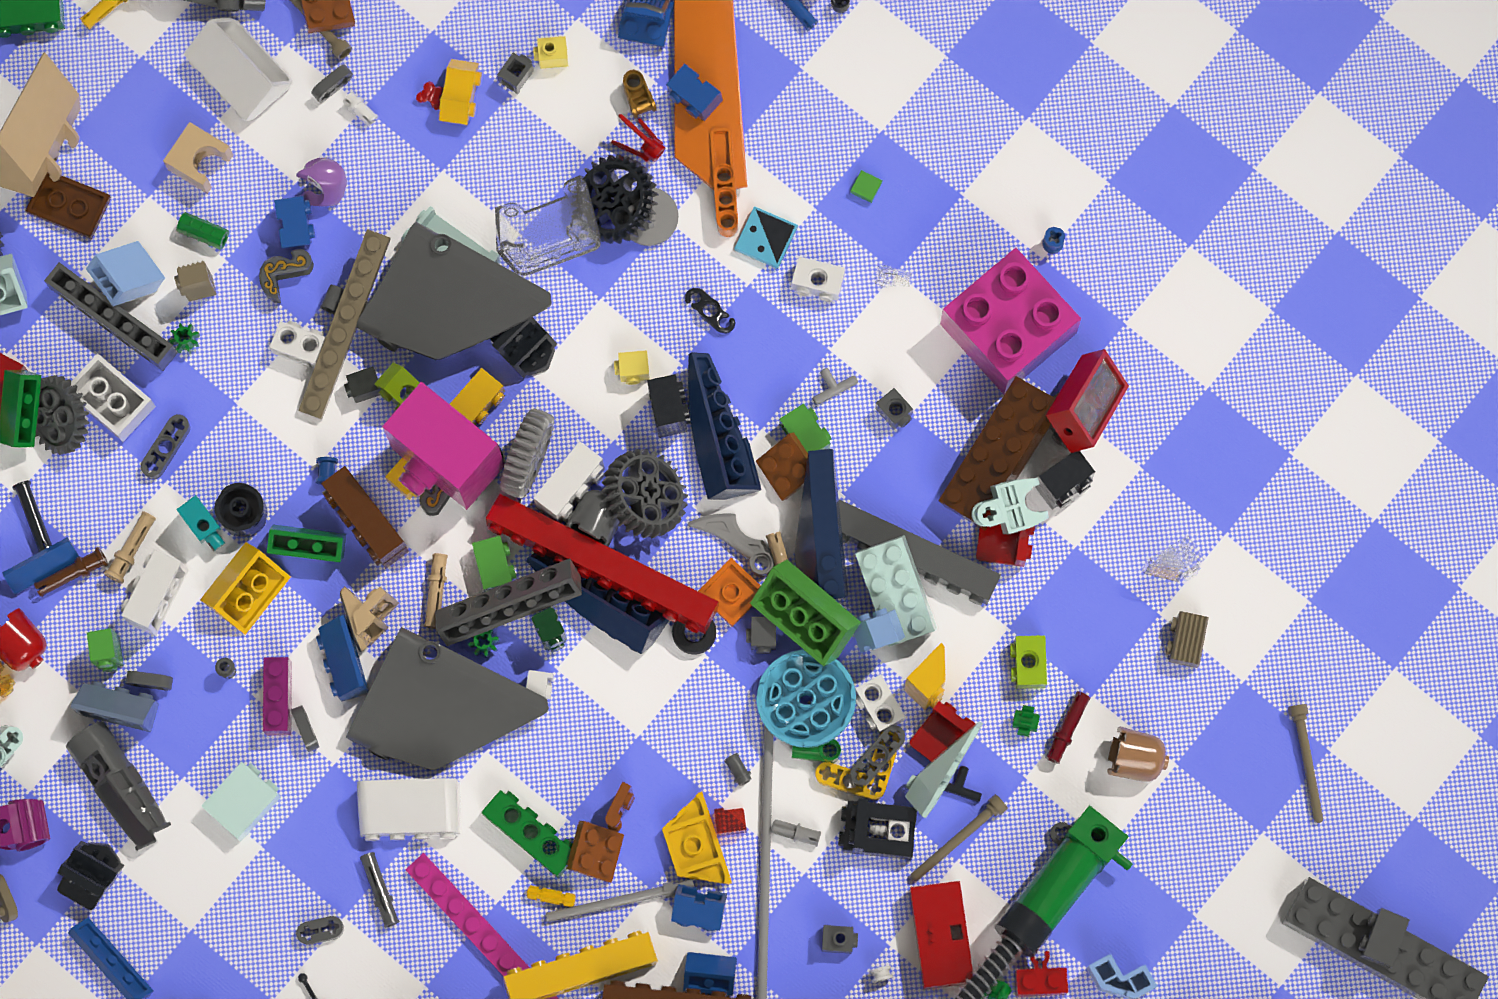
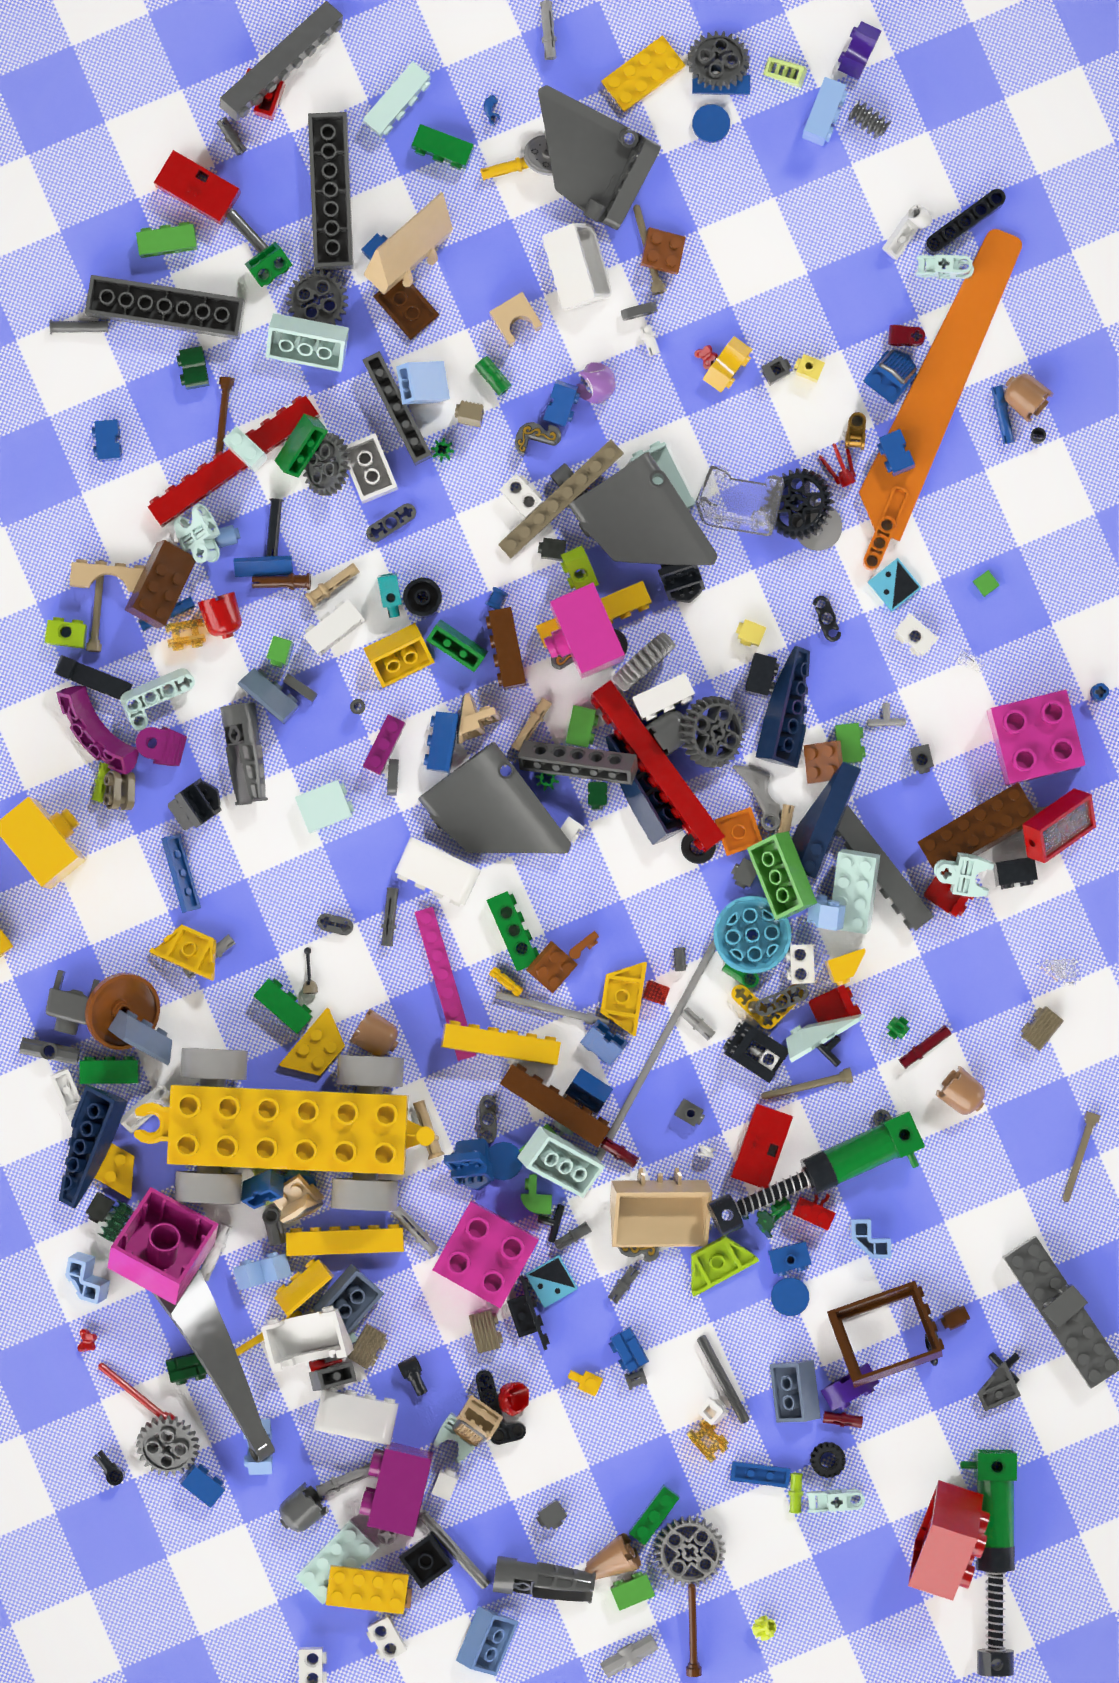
camera: 30 degrees right, 10 degrees up
(1036, 649) = (931, 980): lime brick -> none

